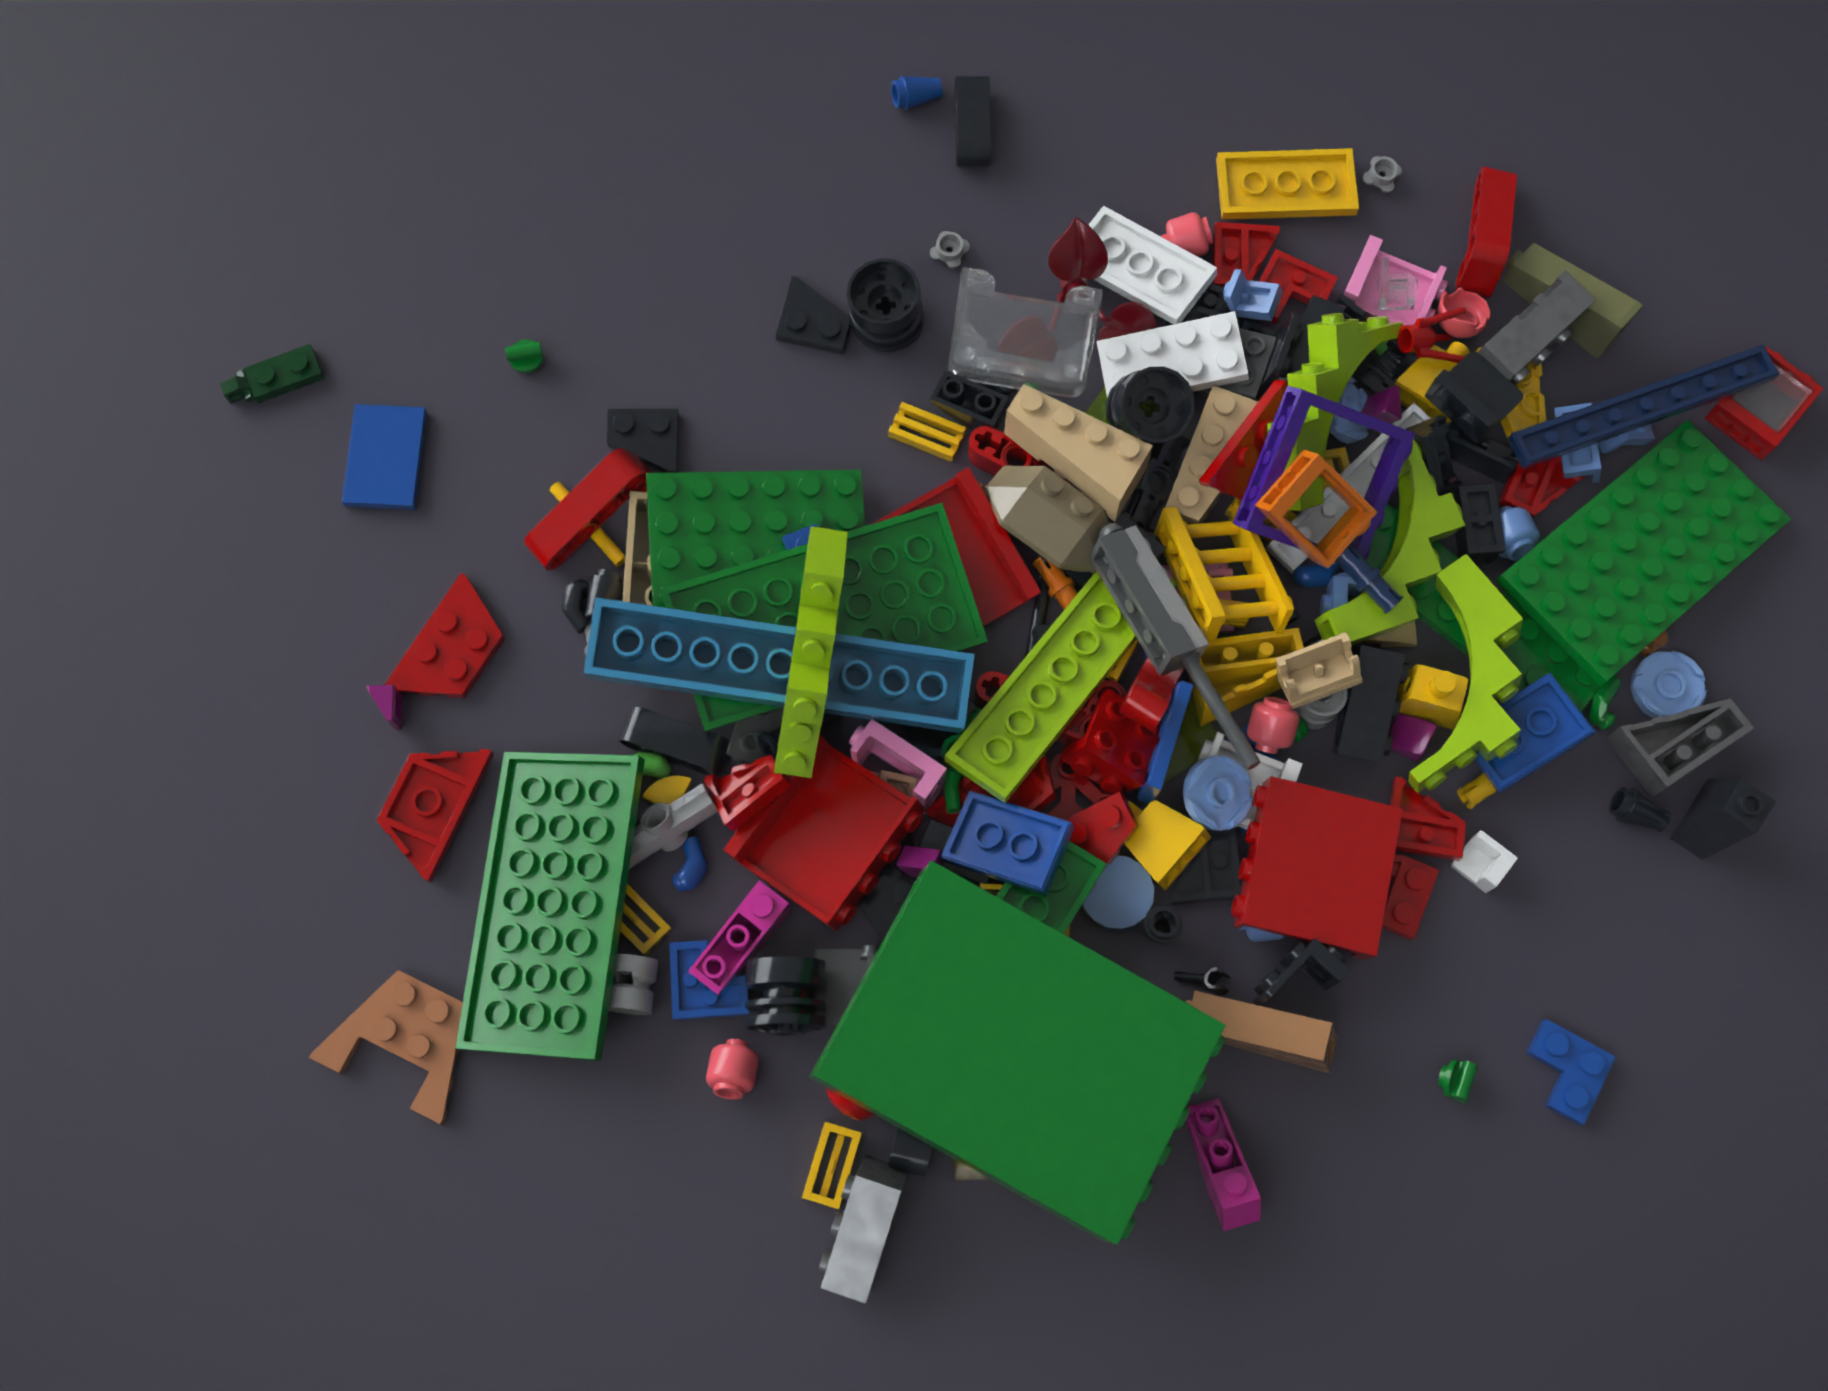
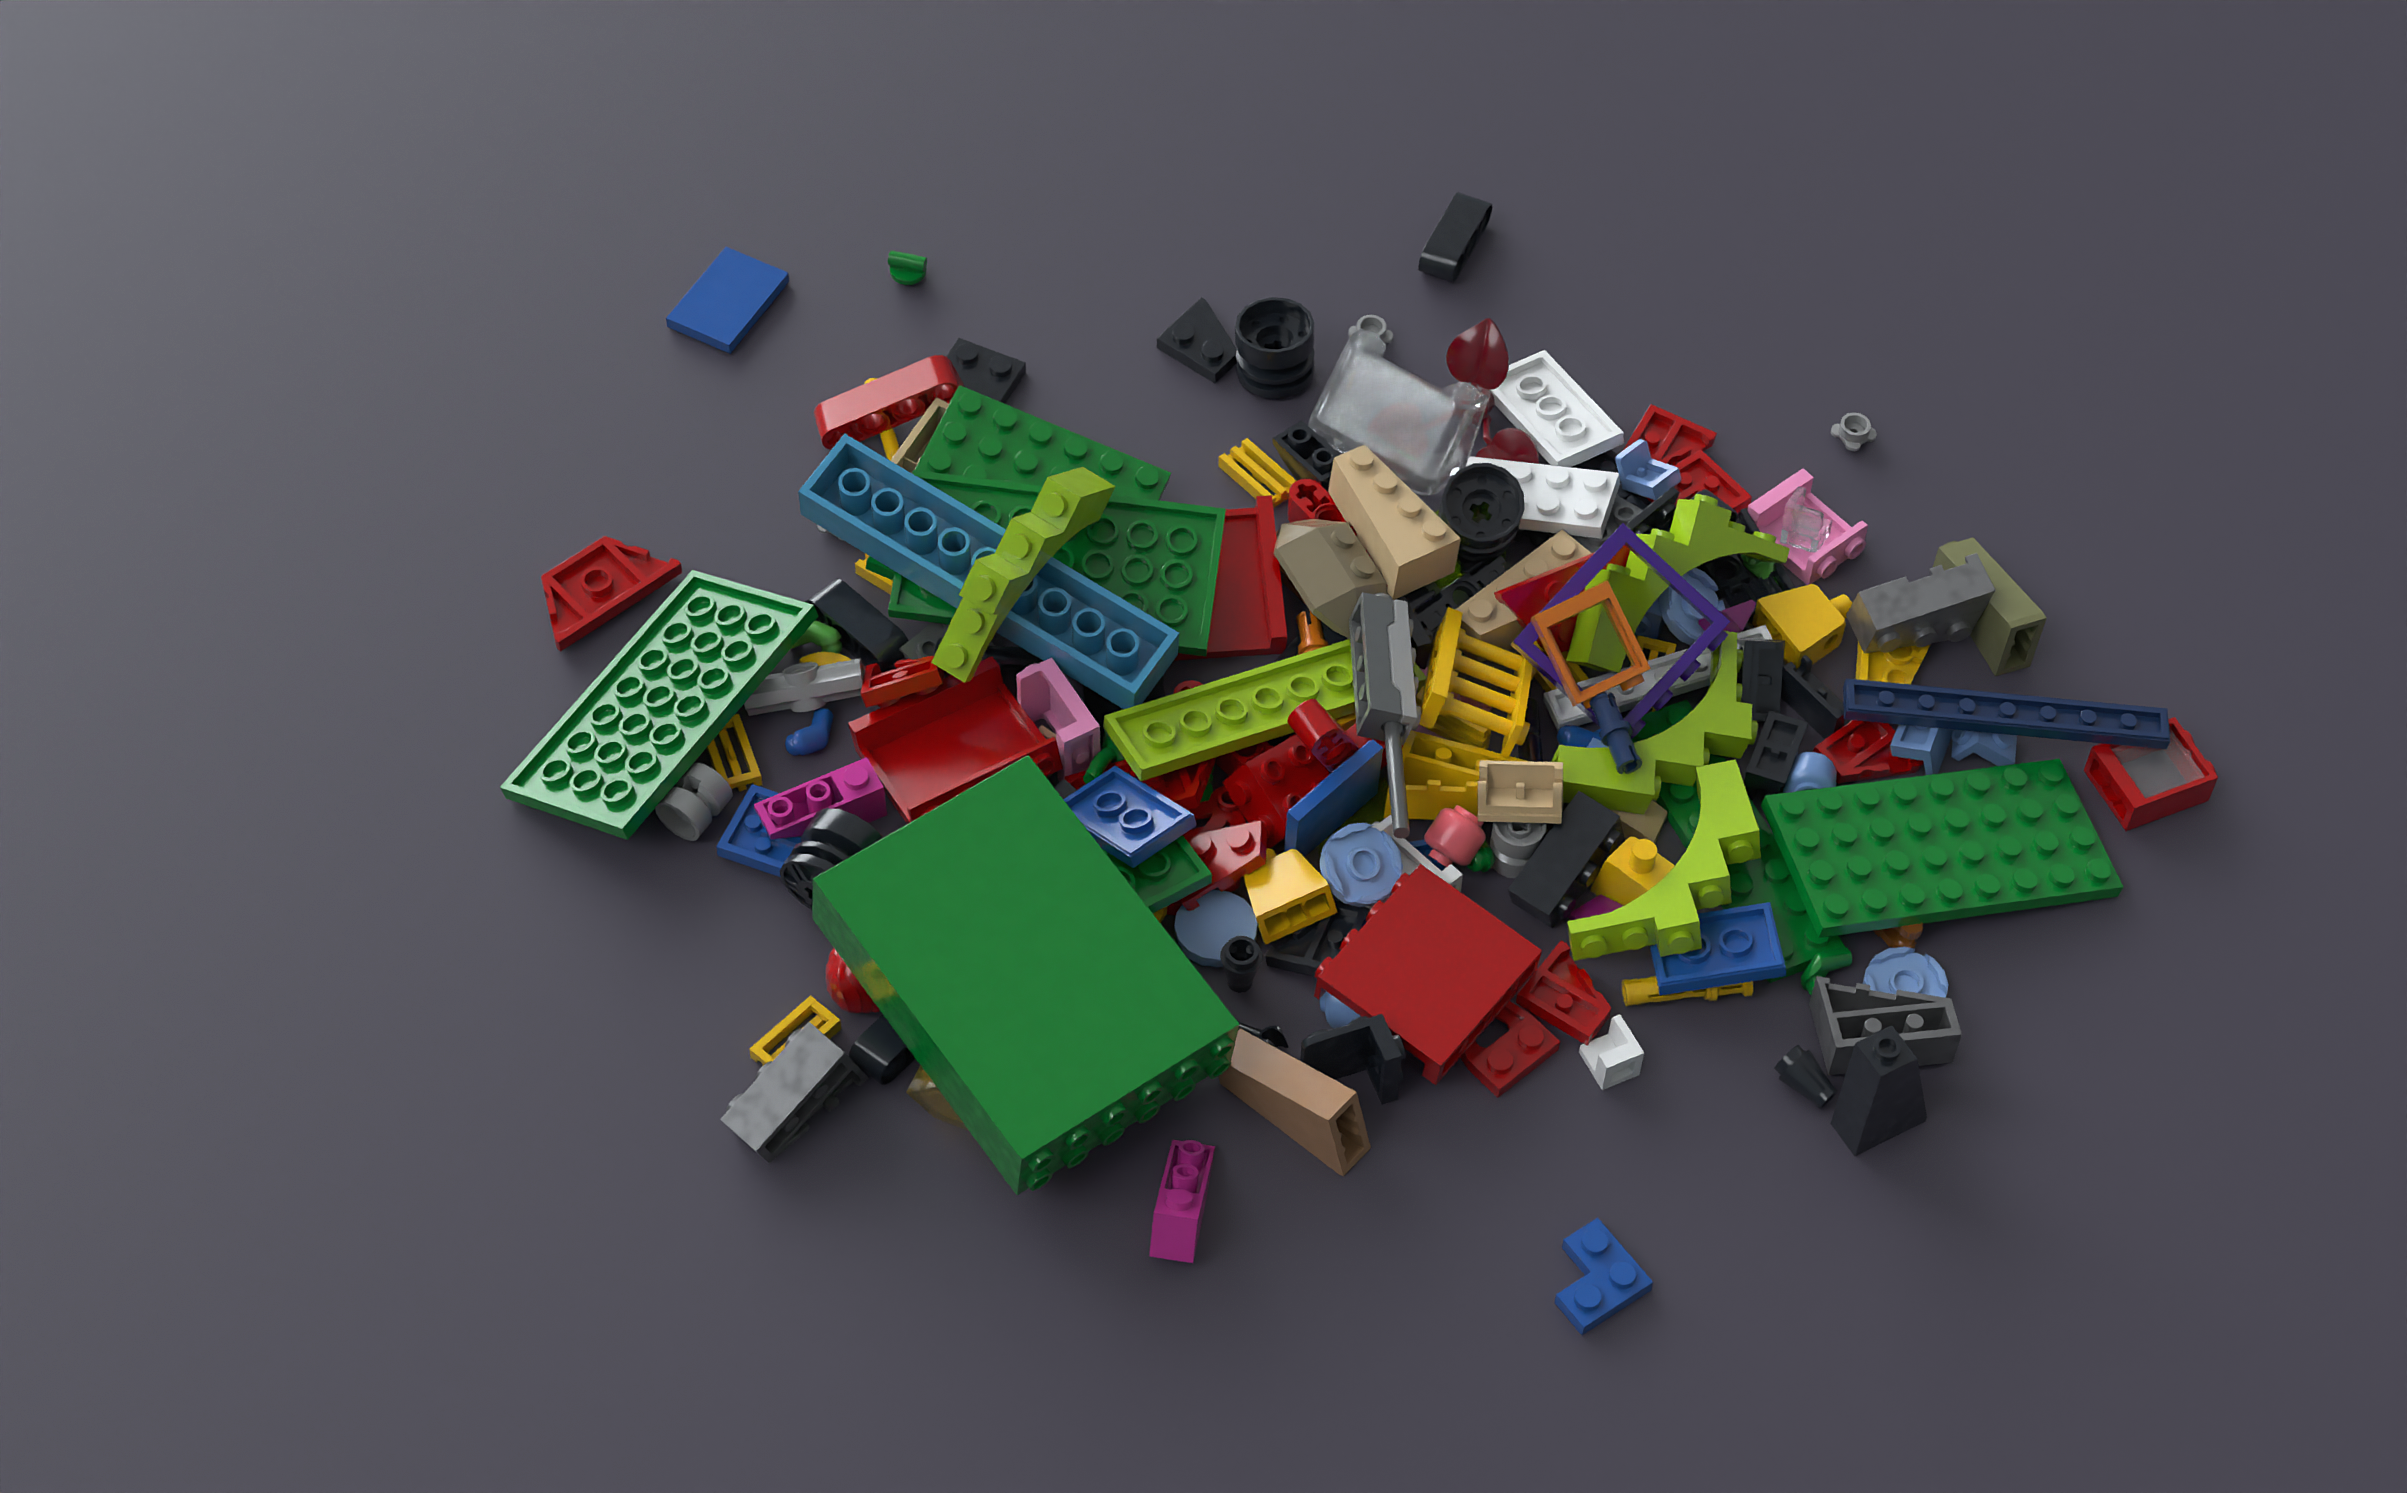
camera: 25 degrees right, 20 degrees down
(274, 376) = (665, 199): dark green hinge -> none
(389, 702) = (611, 489): magenta slope -> none
(411, 1023) = (468, 752): nougat wing -> none
(450, 647) = (693, 473): red wing -> none
(732, 1069) = (747, 912): coral head -> none
(914, 91) = (1413, 193): blue cone -> none
(1189, 233) = (1620, 404): coral head -> none
(1287, 184) = (1747, 402): yellow plate -> none
(1421, 337) = (1798, 570): red plant -> none
(1457, 1079) = (1470, 1227): green plate -> none
(1472, 322) = (1862, 571): coral hair -> none
(1474, 395) = (1826, 635): black bracket -> none
(1488, 232) = (1929, 513): red beam -> none

